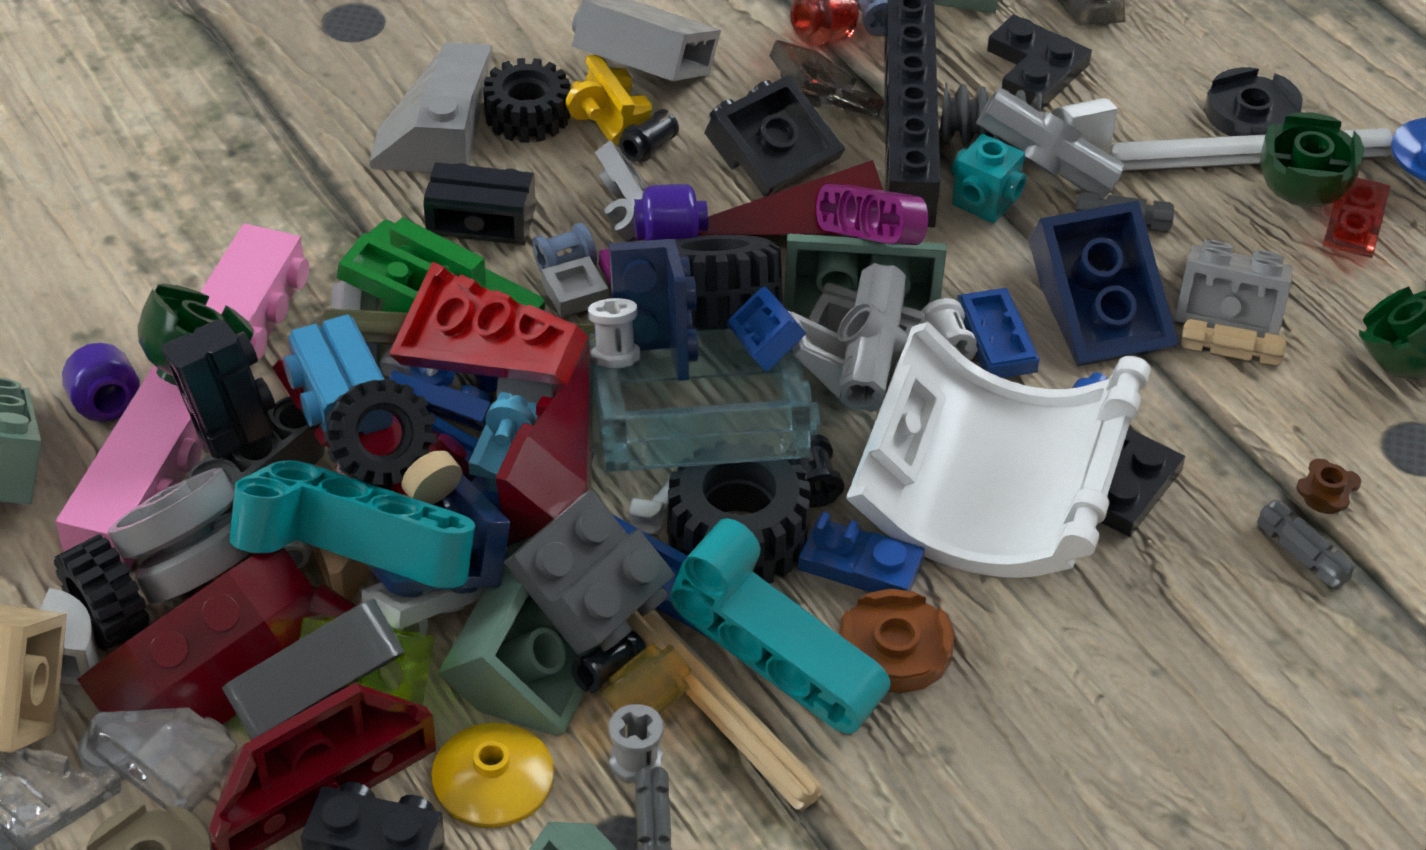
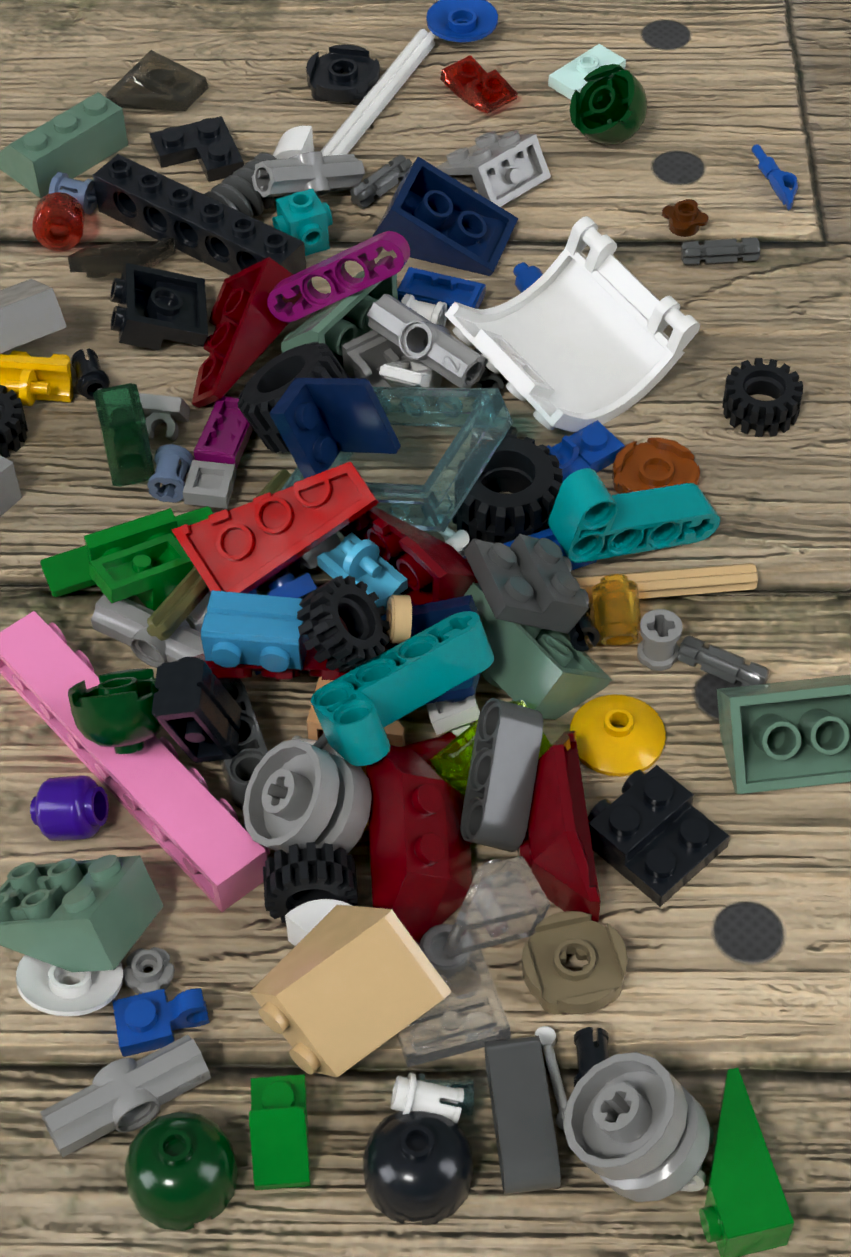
camera: 55 degrees left, 5 degrees up
(480, 203) = (77, 497): black brick -> none
(566, 183) = (124, 434): none -> clear green brick
(614, 333) = (322, 452): white bush -> none
(669, 213) = (214, 391): dark purple head -> none
(765, 328) = (399, 380): blue plate -> none
(1089, 709) = (760, 414): none -> black tyre
(1233, 342) = (537, 193): tan axle -> none
(1310, 159) = (431, 71): dark green cylinder -> none

